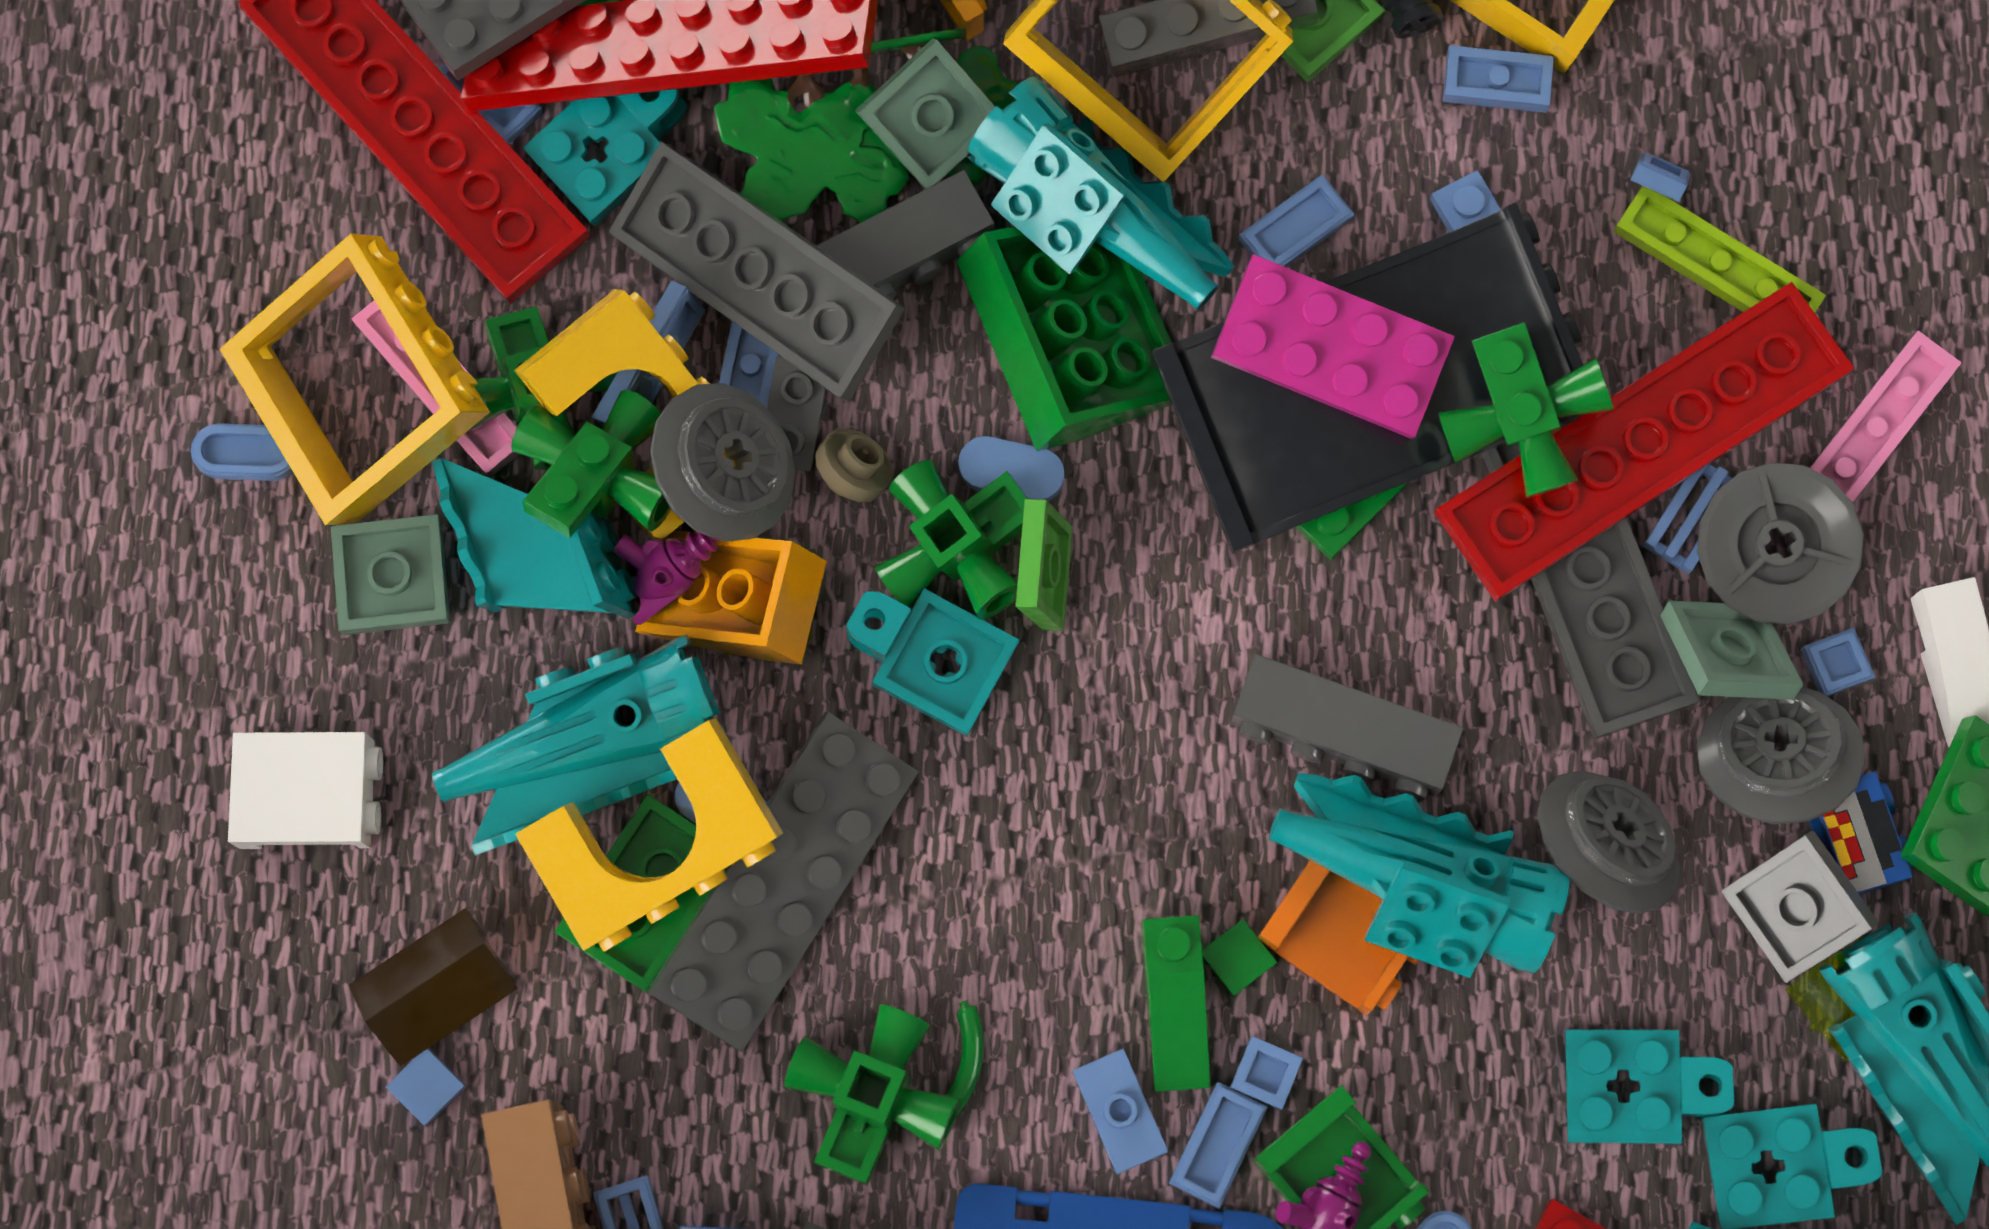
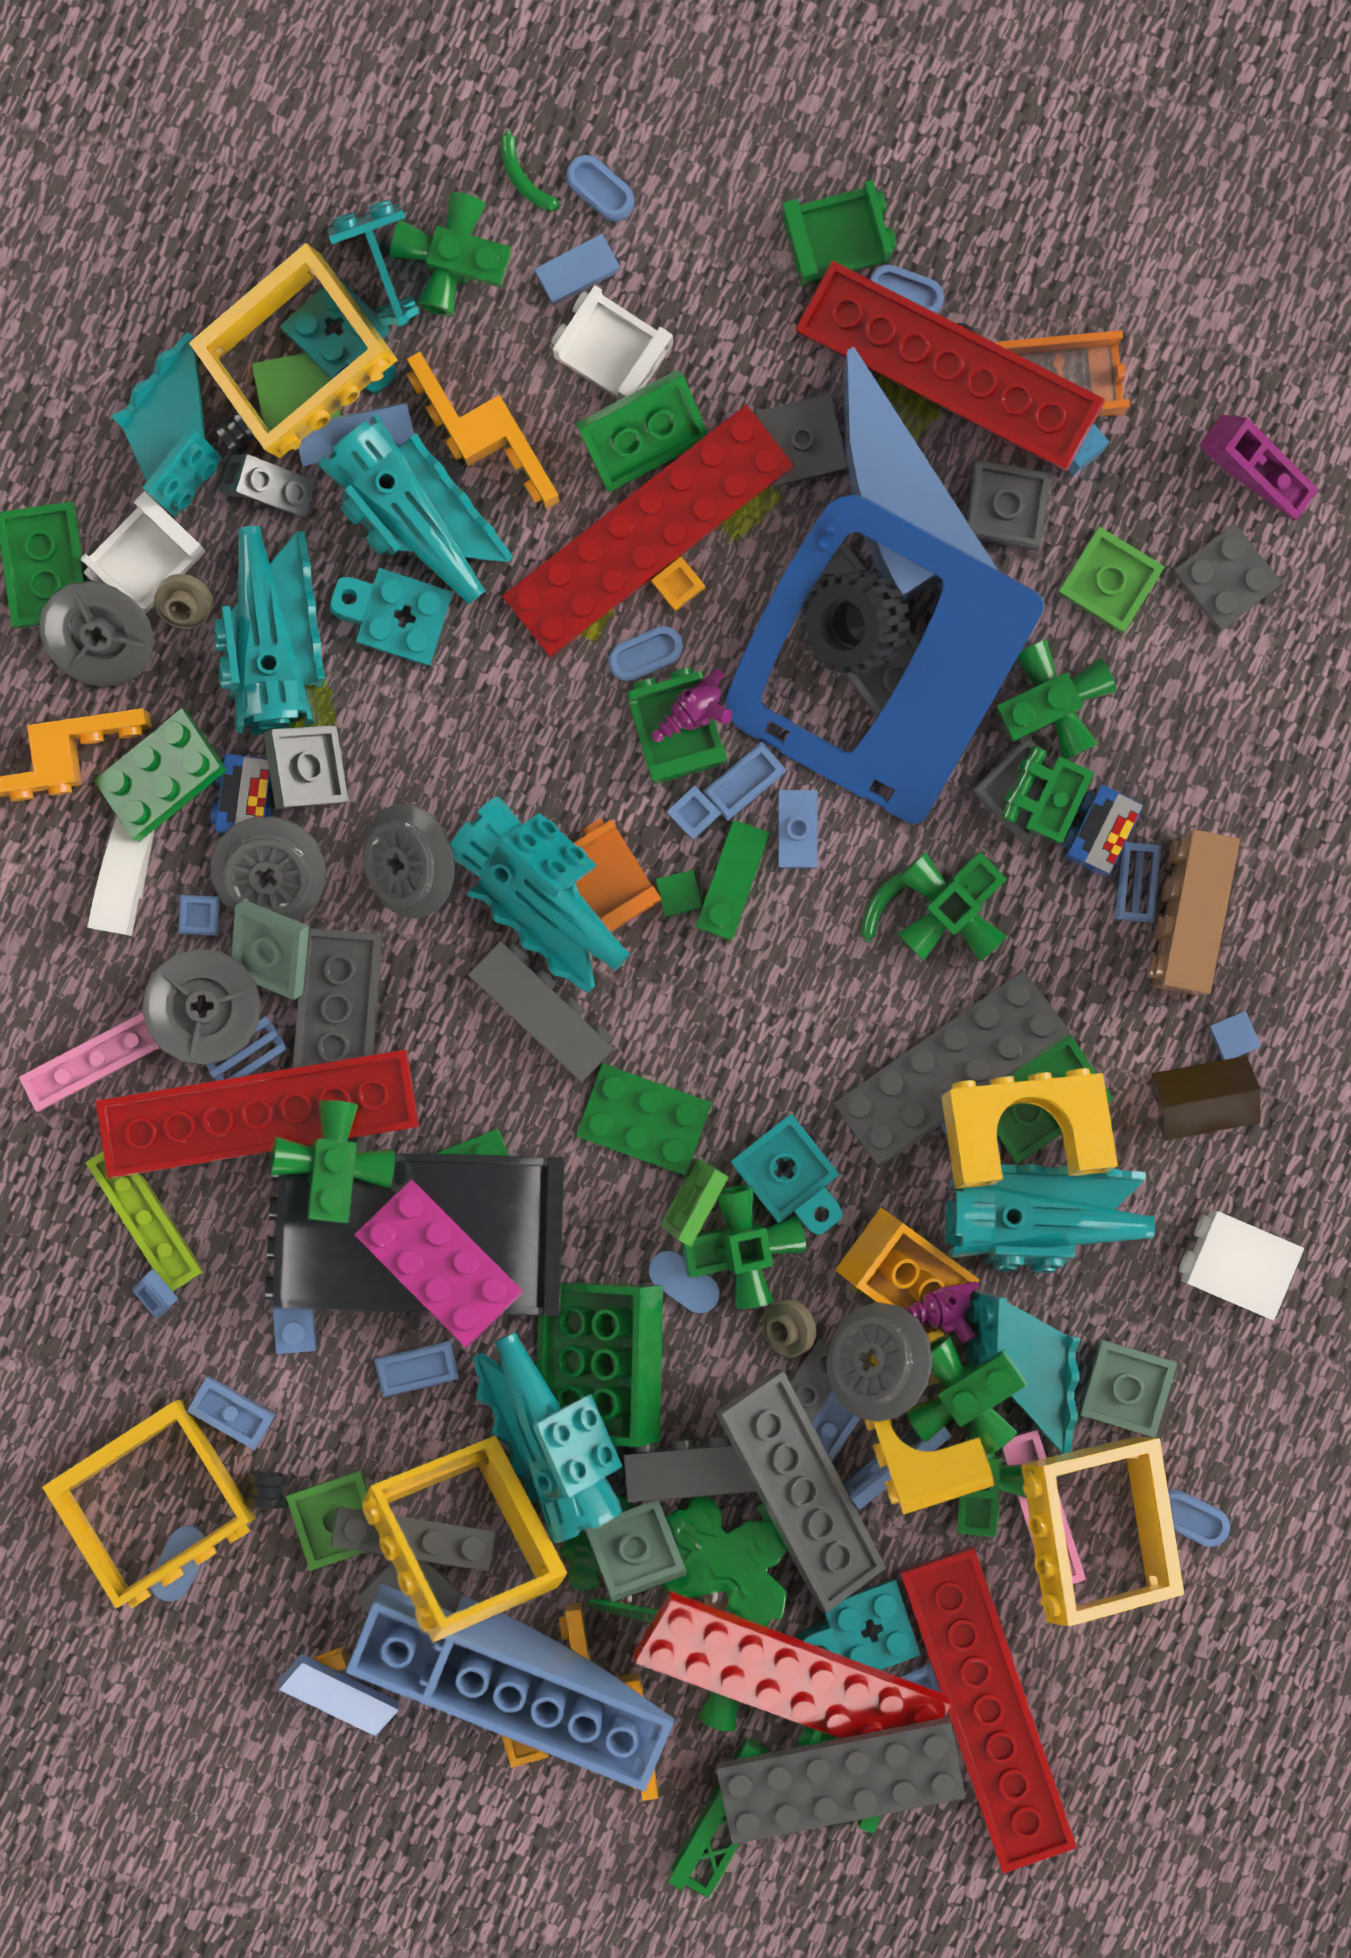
camera: 160 degrees left, 10 degrees up
(1152, 649) = (644, 1119): none -> green plate
(1666, 1086) = (443, 698): teal plate -> none

